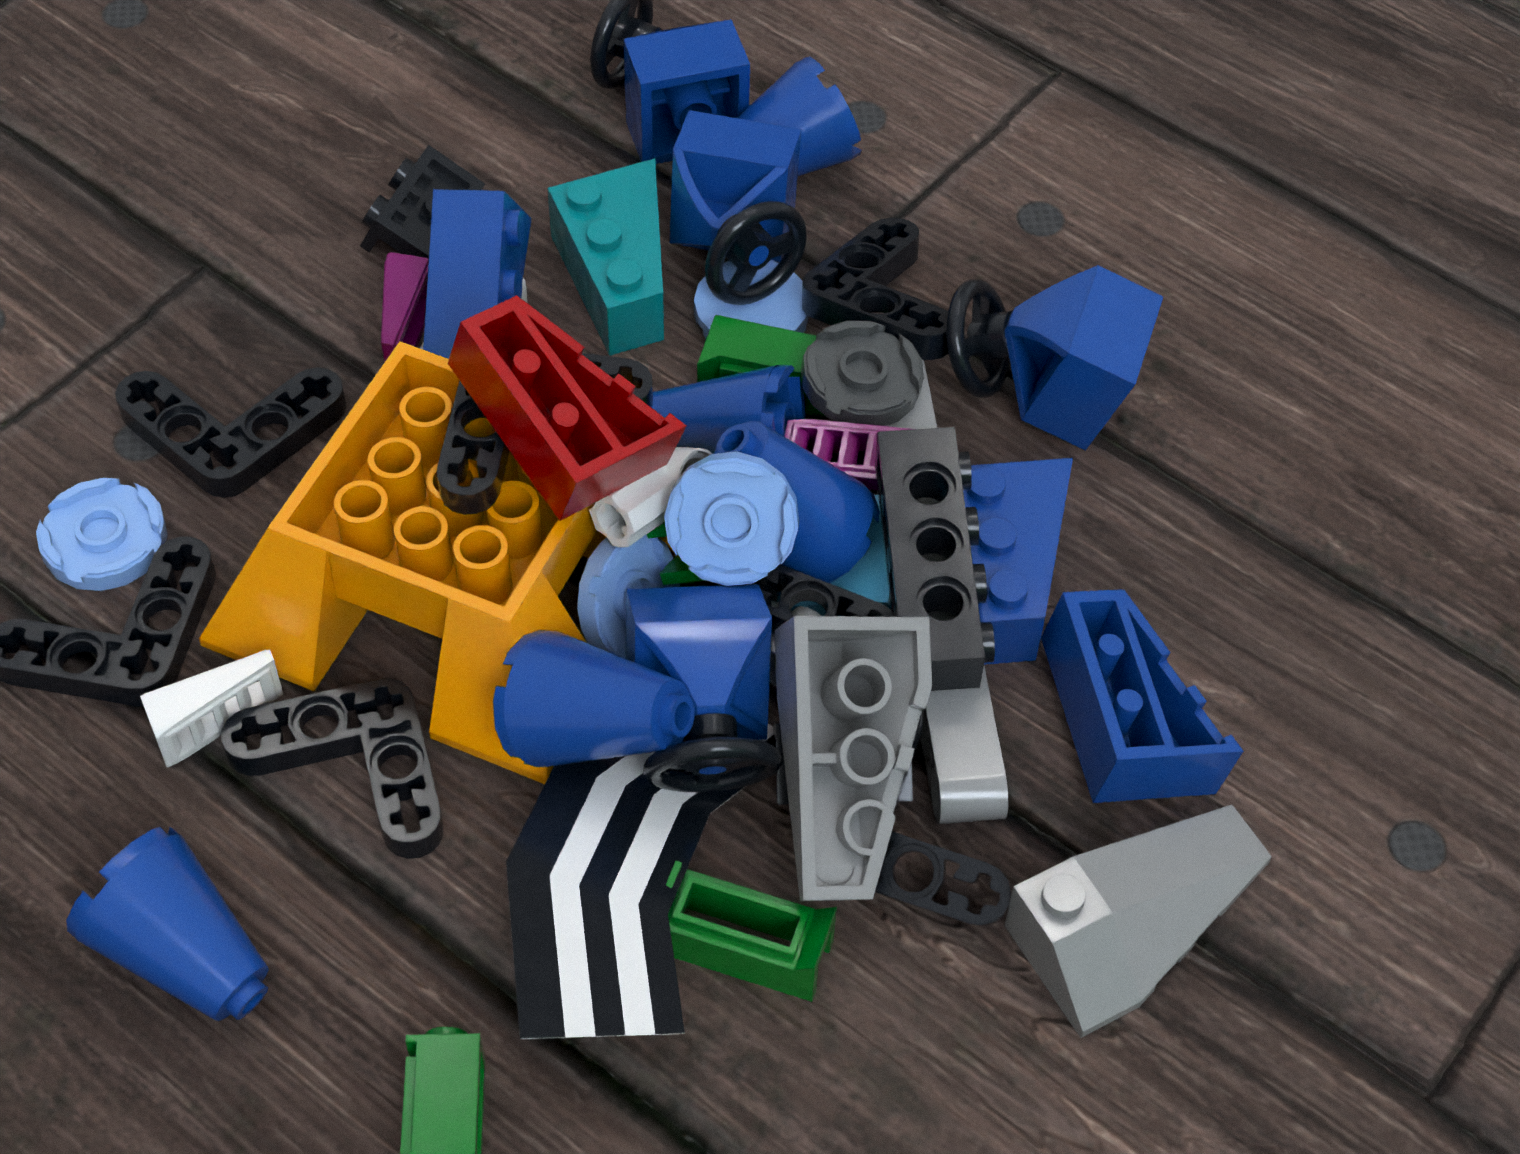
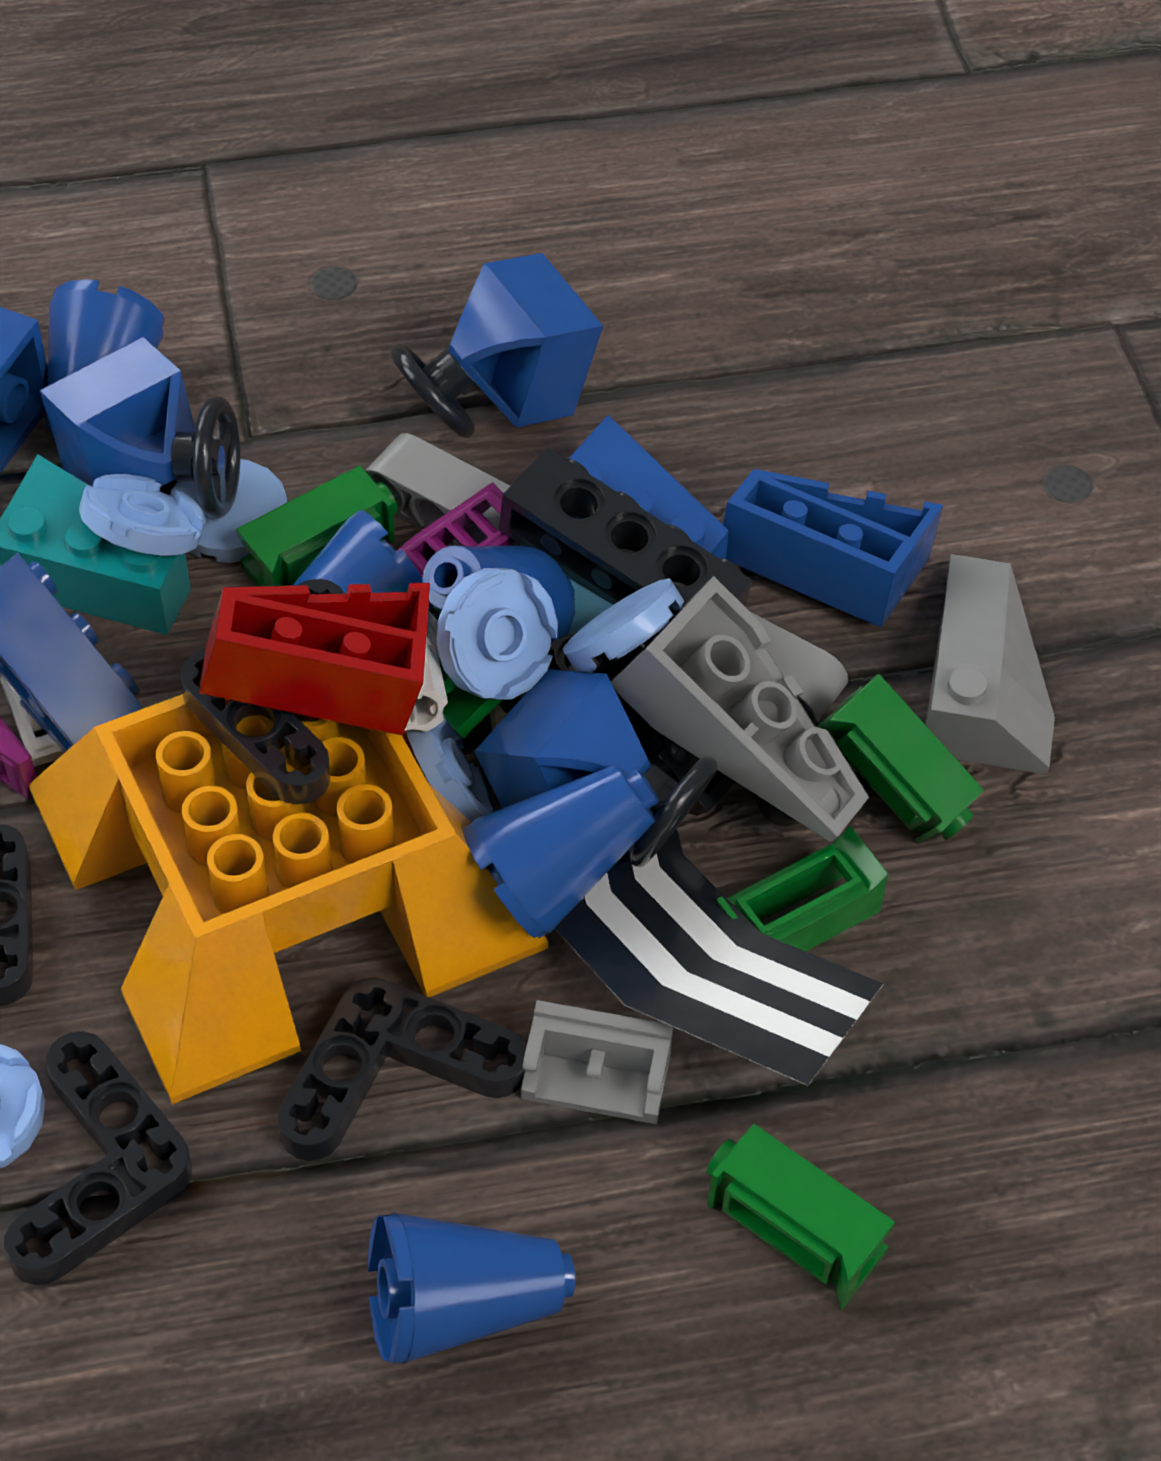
camera: 50 degrees left, 0 degrees up
(195, 709) = (245, 1147): white slope -> none
(460, 888) = (596, 1062): none -> light grey hinge
(653, 249) = (140, 517): none -> light blue tile
(831, 597) = (624, 625): none -> light blue tile
(862, 274) = (377, 419): black beam -> none
(862, 374) = (399, 479): dark grey tile -> none
(943, 902) = (903, 761): none -> green window

